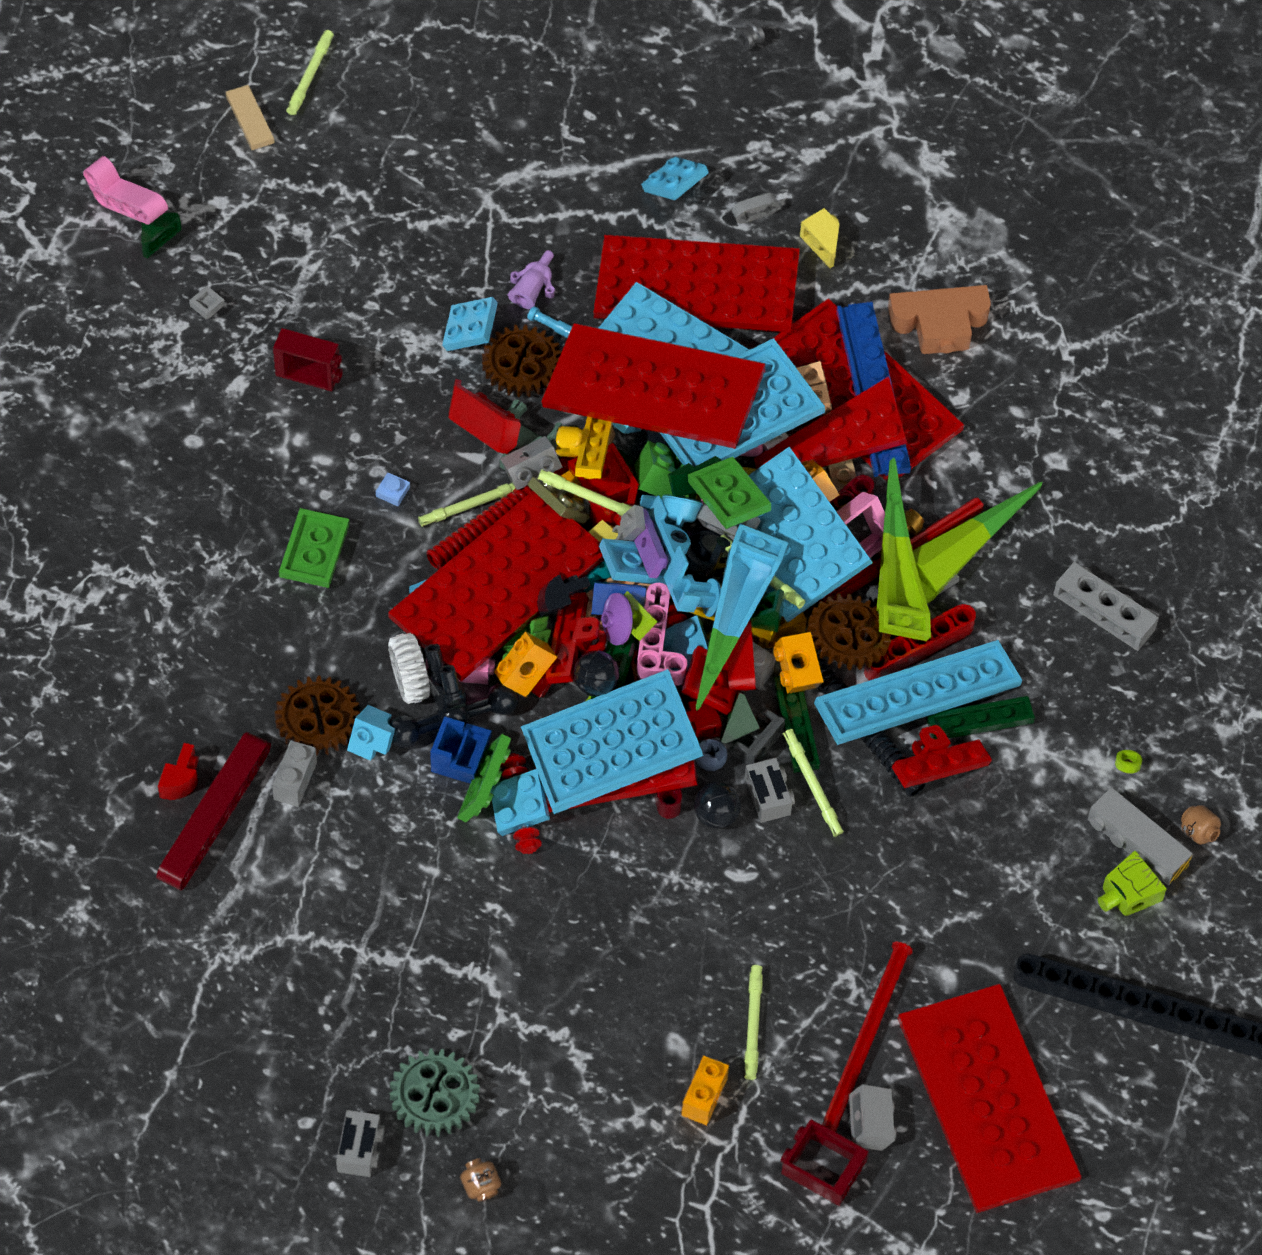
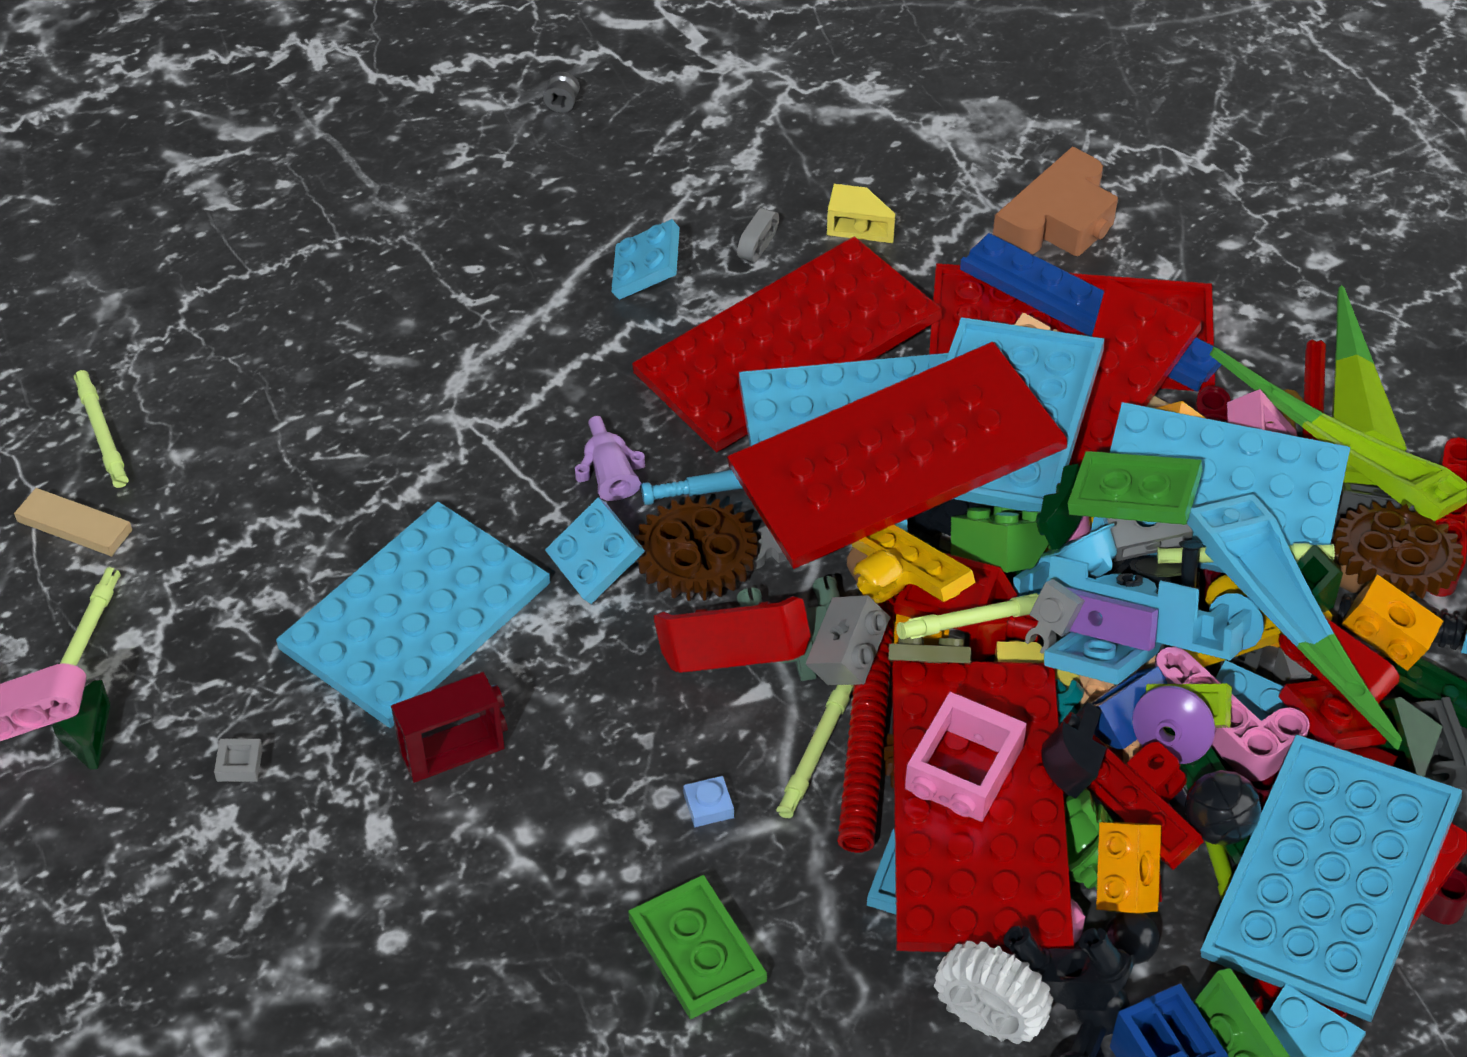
camera: 40 degrees left, 10 degrees down
(223, 170) = (98, 601): none -> yellowish green piece
(360, 289) = (413, 612): none -> medium azure plate
(509, 574) = (977, 725): none -> bright pink window

